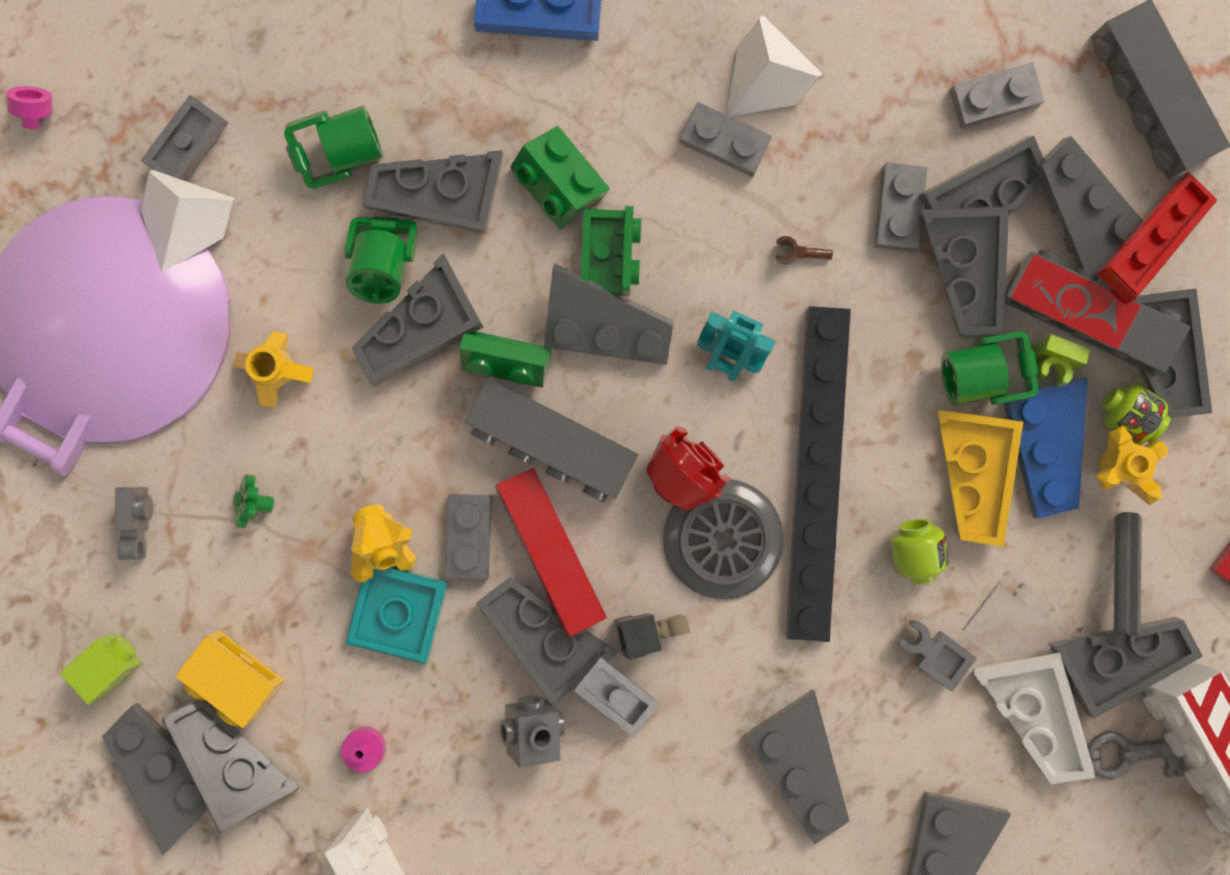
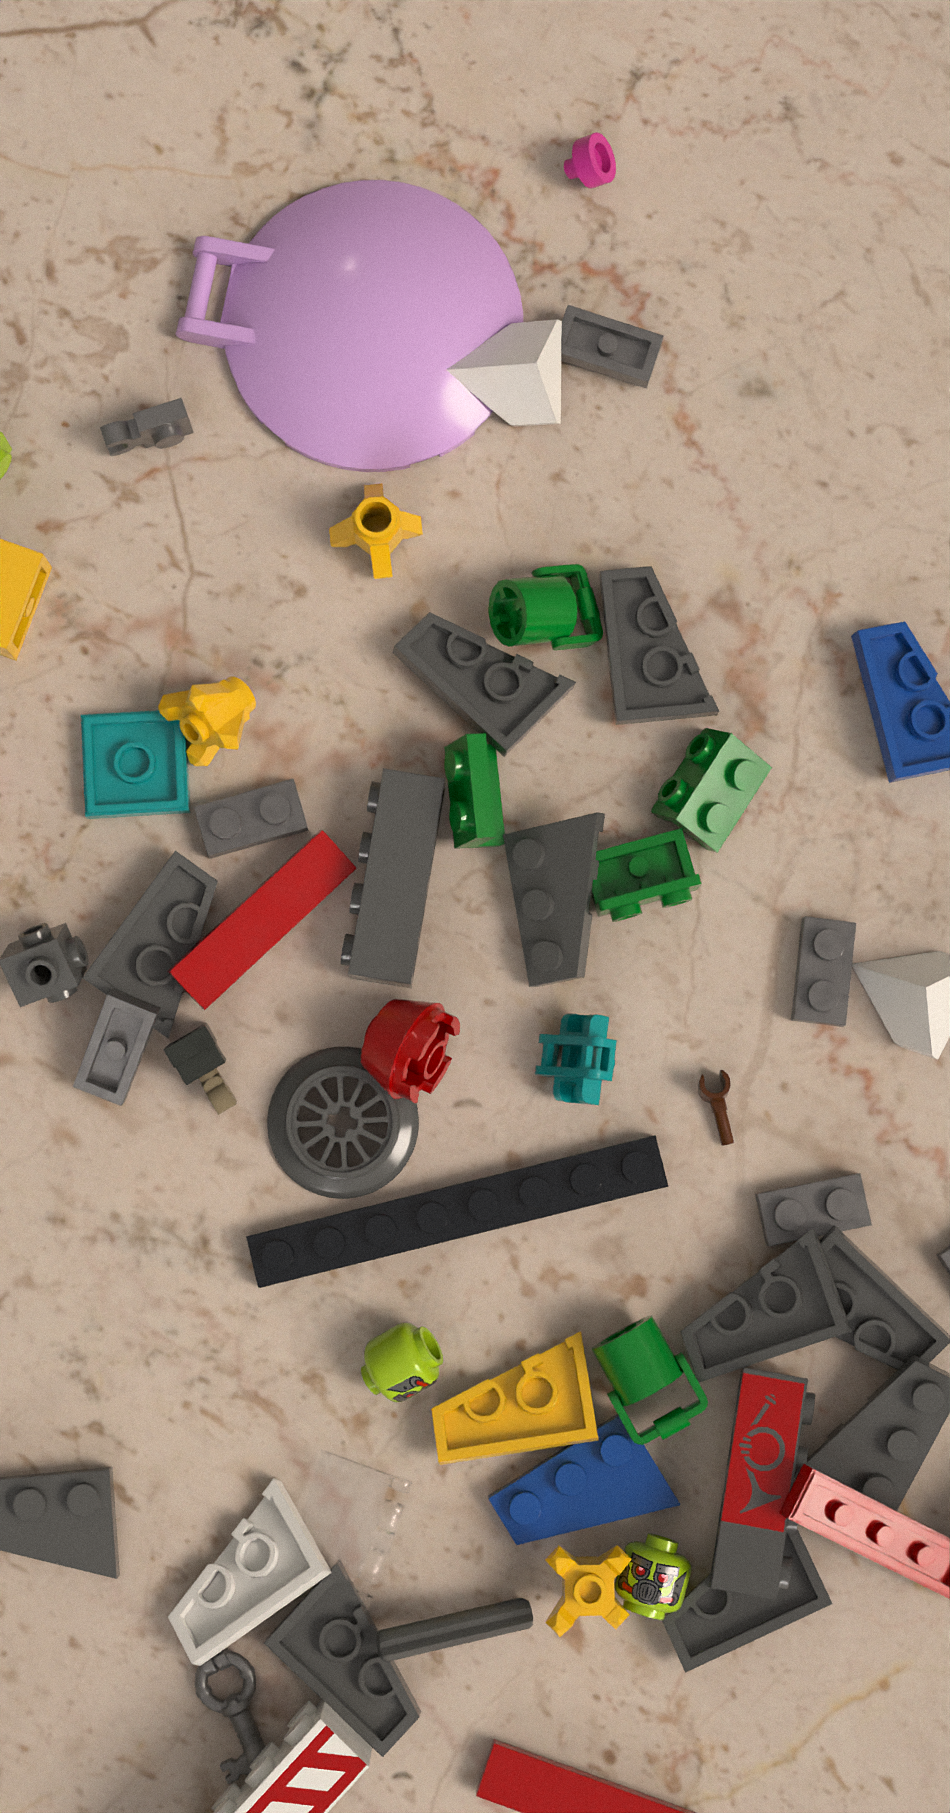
camera: 70 degrees right, 5 degrees down
(249, 501) = (212, 553): green plant -> none
(346, 139) = (670, 526): green piece -> none
(801, 765) = (97, 1302): dark grey wing -> none
(940, 657) = (280, 1430): flat silver plate -> none
(1060, 355) = (695, 1460): lime tile -> none

